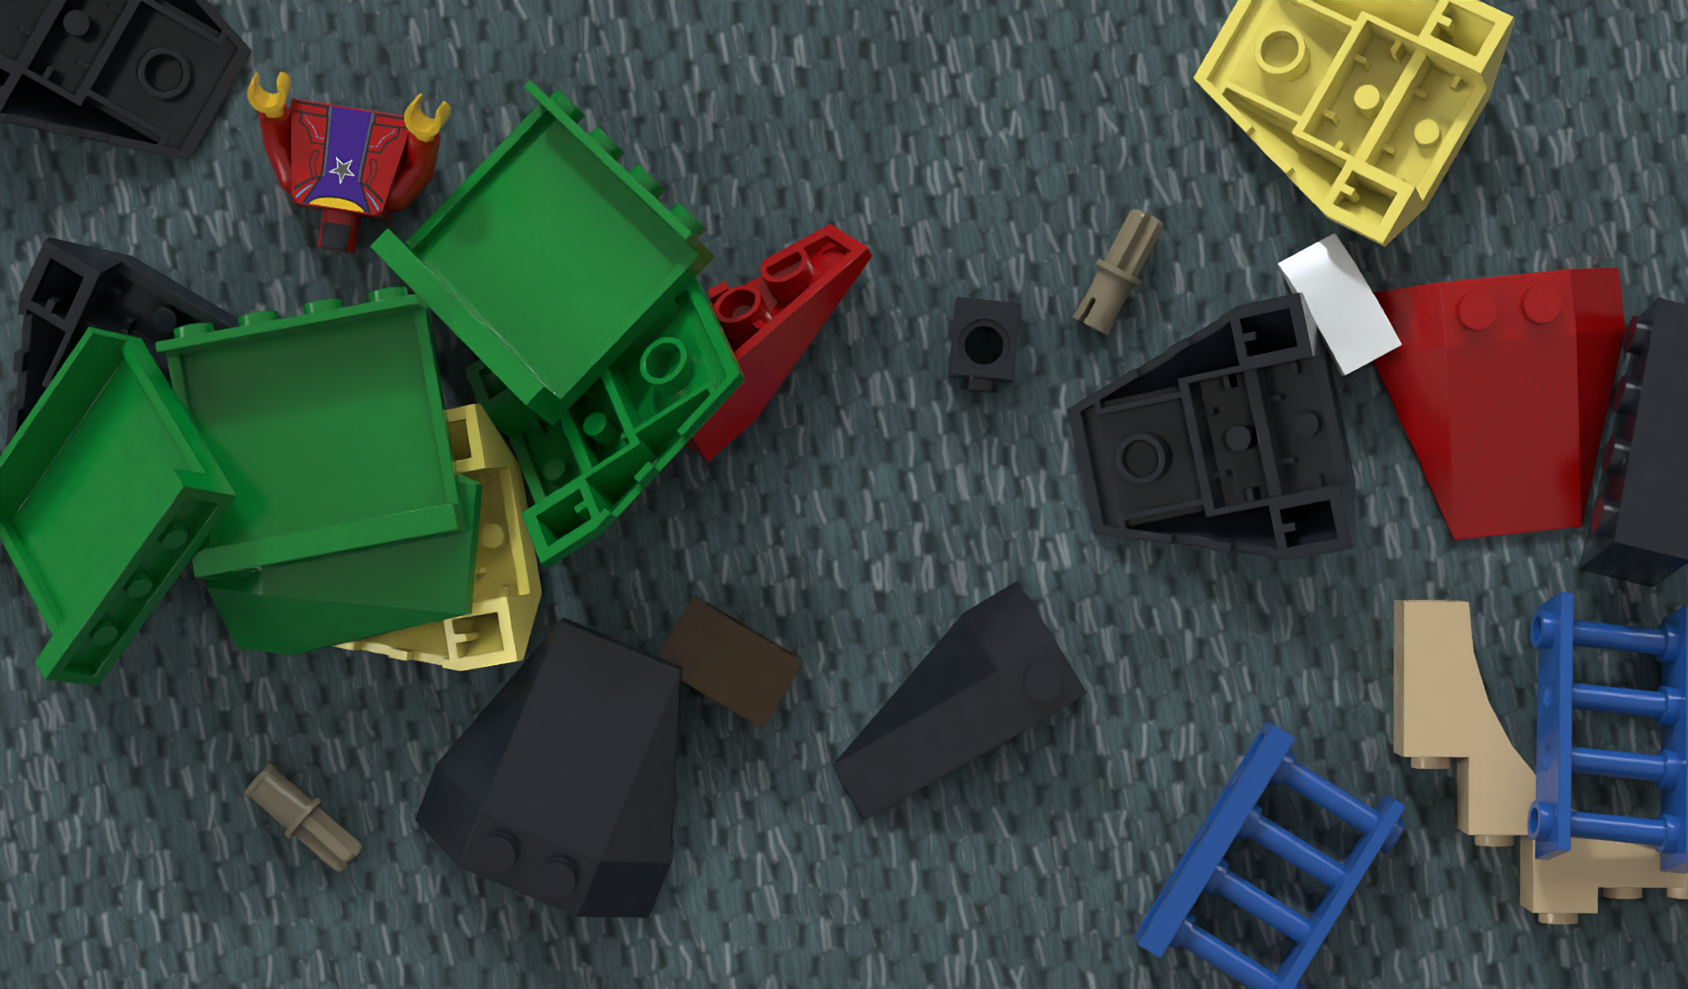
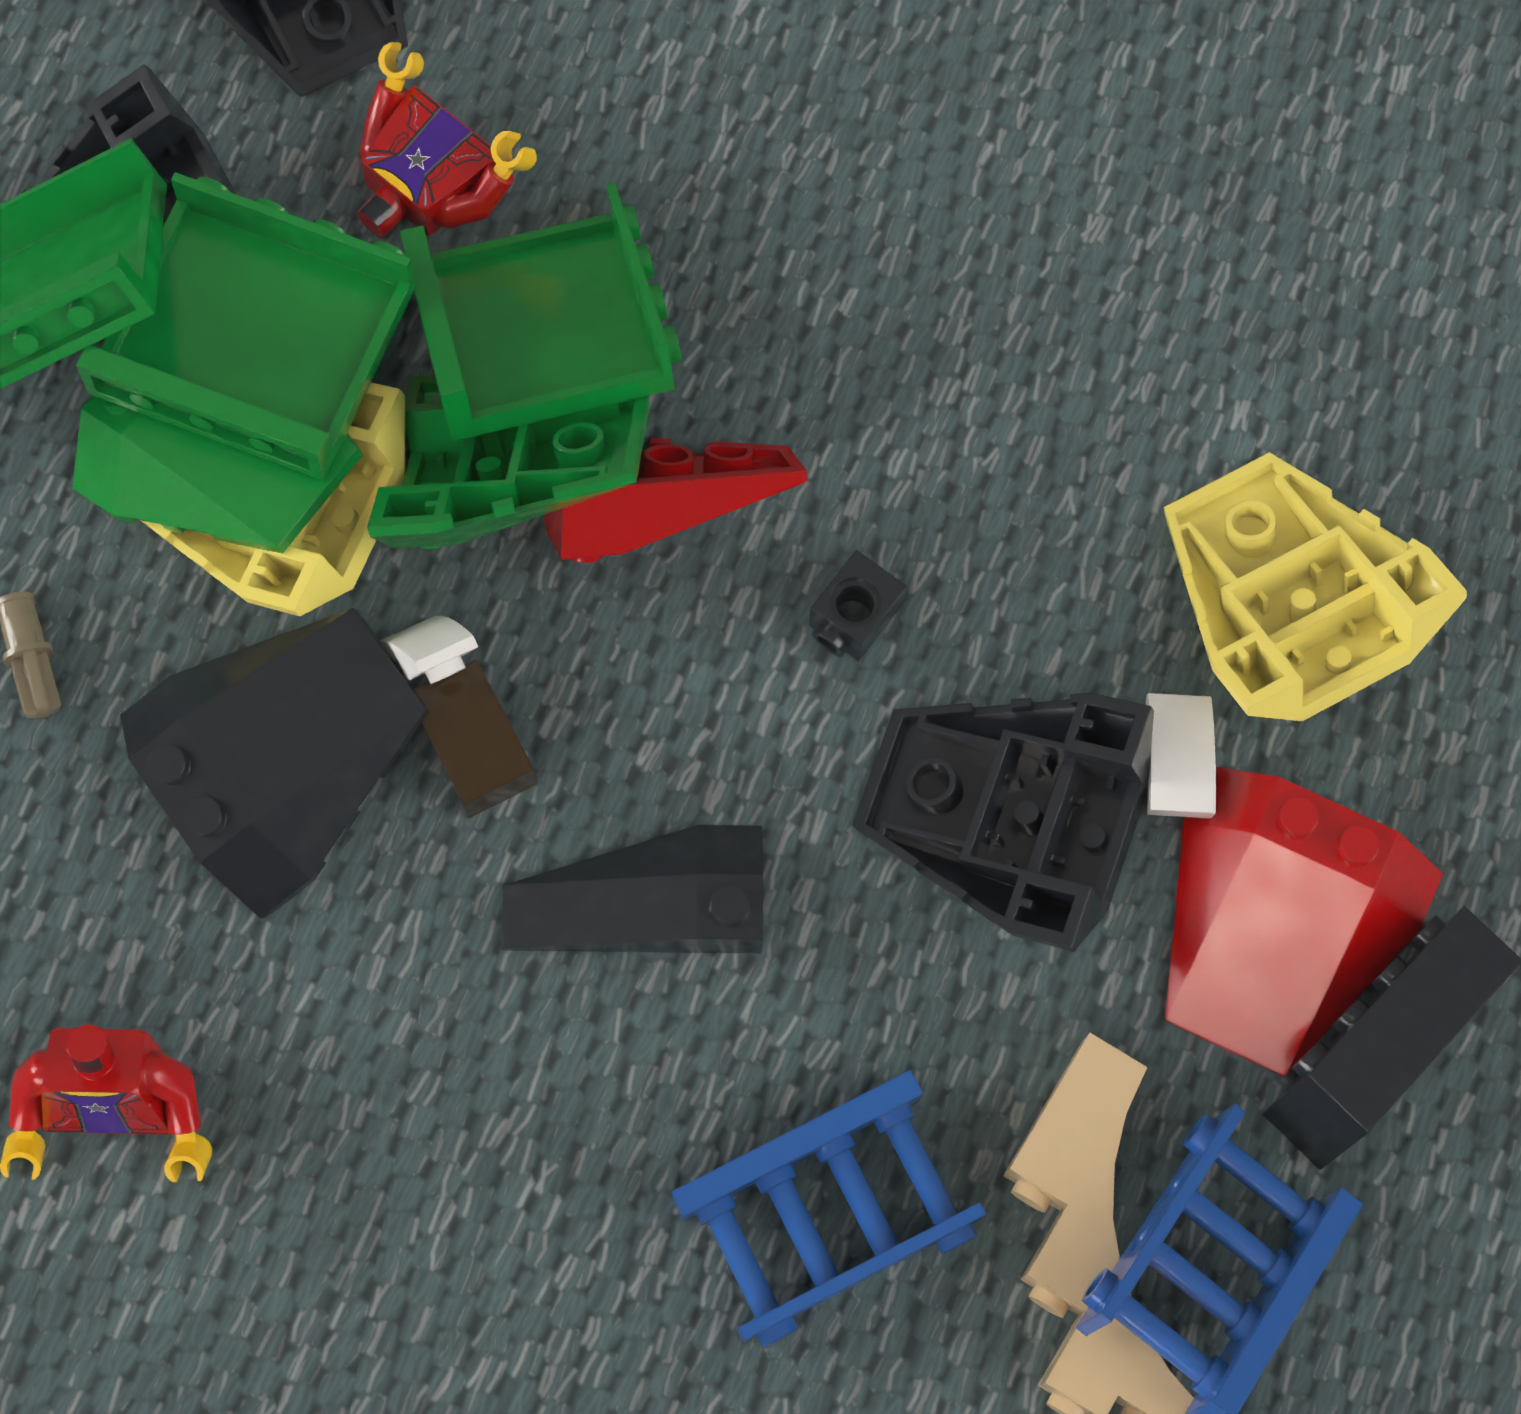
camera: 25 degrees right, 15 degrees down
(644, 613) = (431, 648): none -> white slope
(1119, 271) = (1005, 621): dark tan axle -> none

